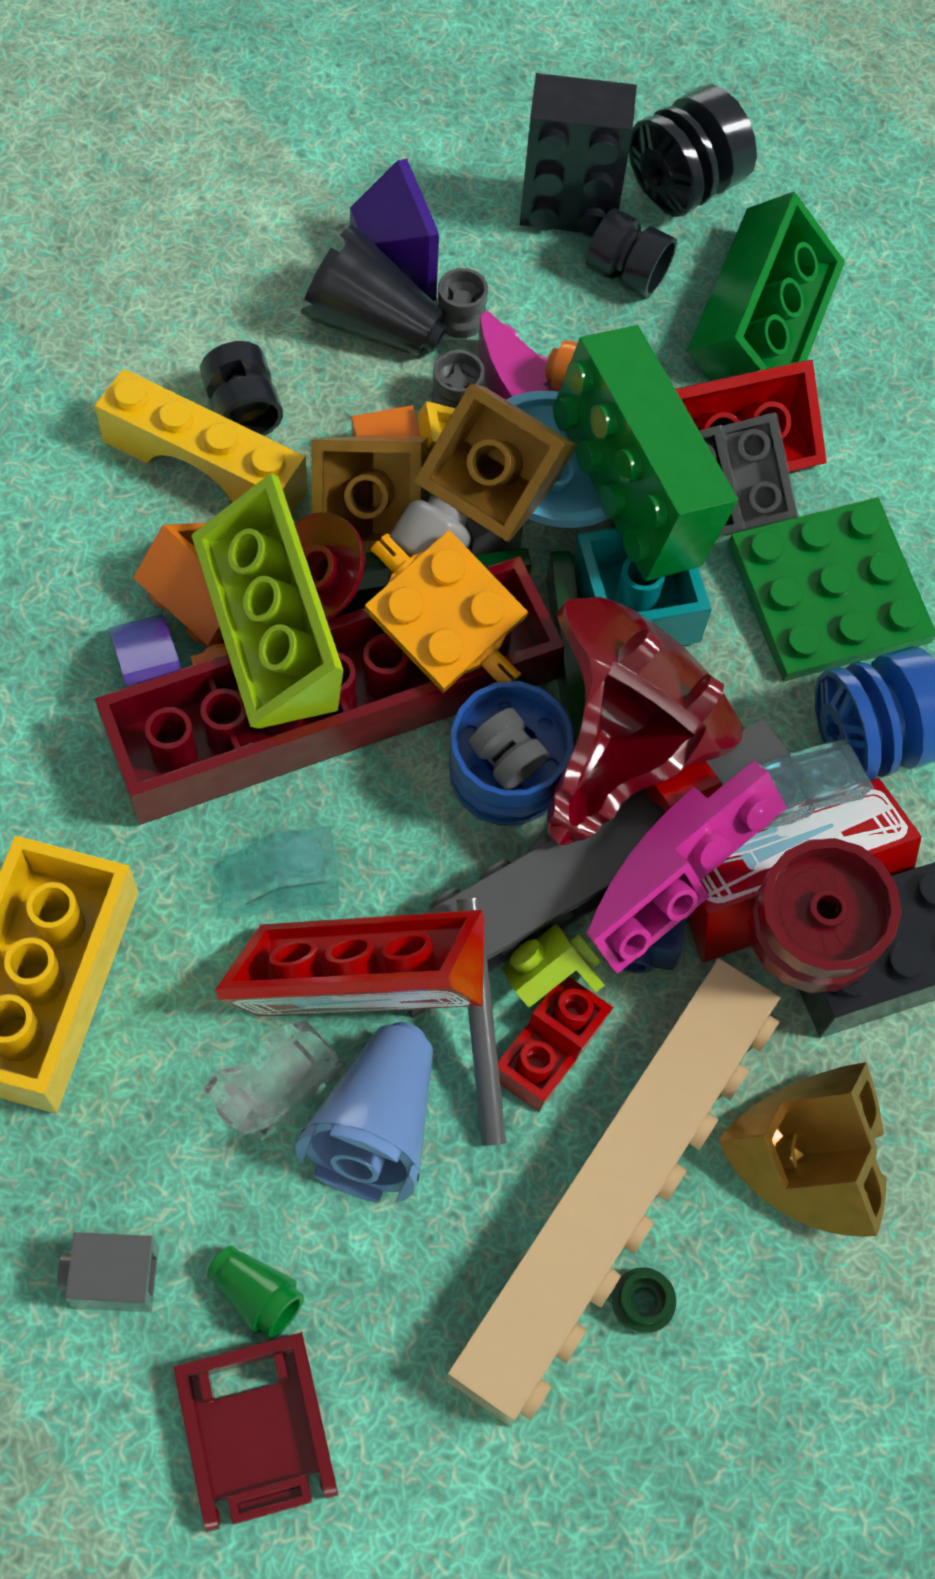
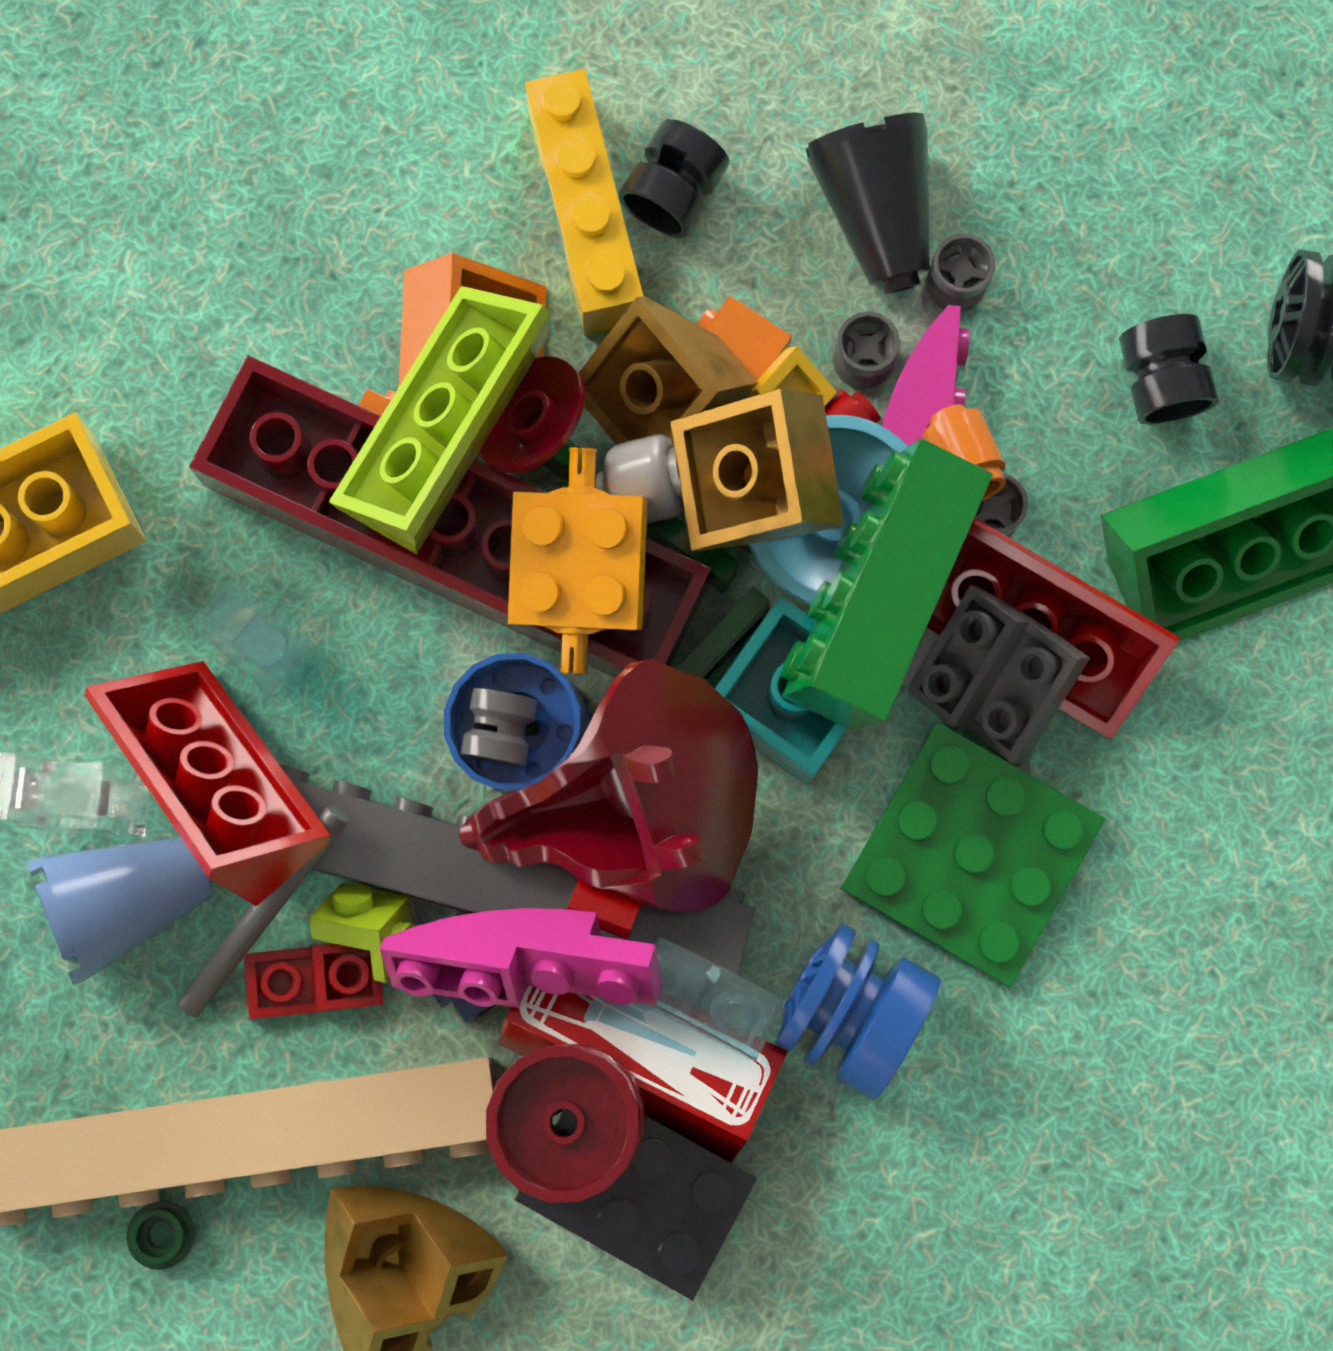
camera: 50 degrees right, 15 degrees up
(144, 649) = (343, 344): dark purple slope -> none
(401, 225) = (967, 146): dark purple slope -> none
(576, 152) = (1205, 228): black brick -> none

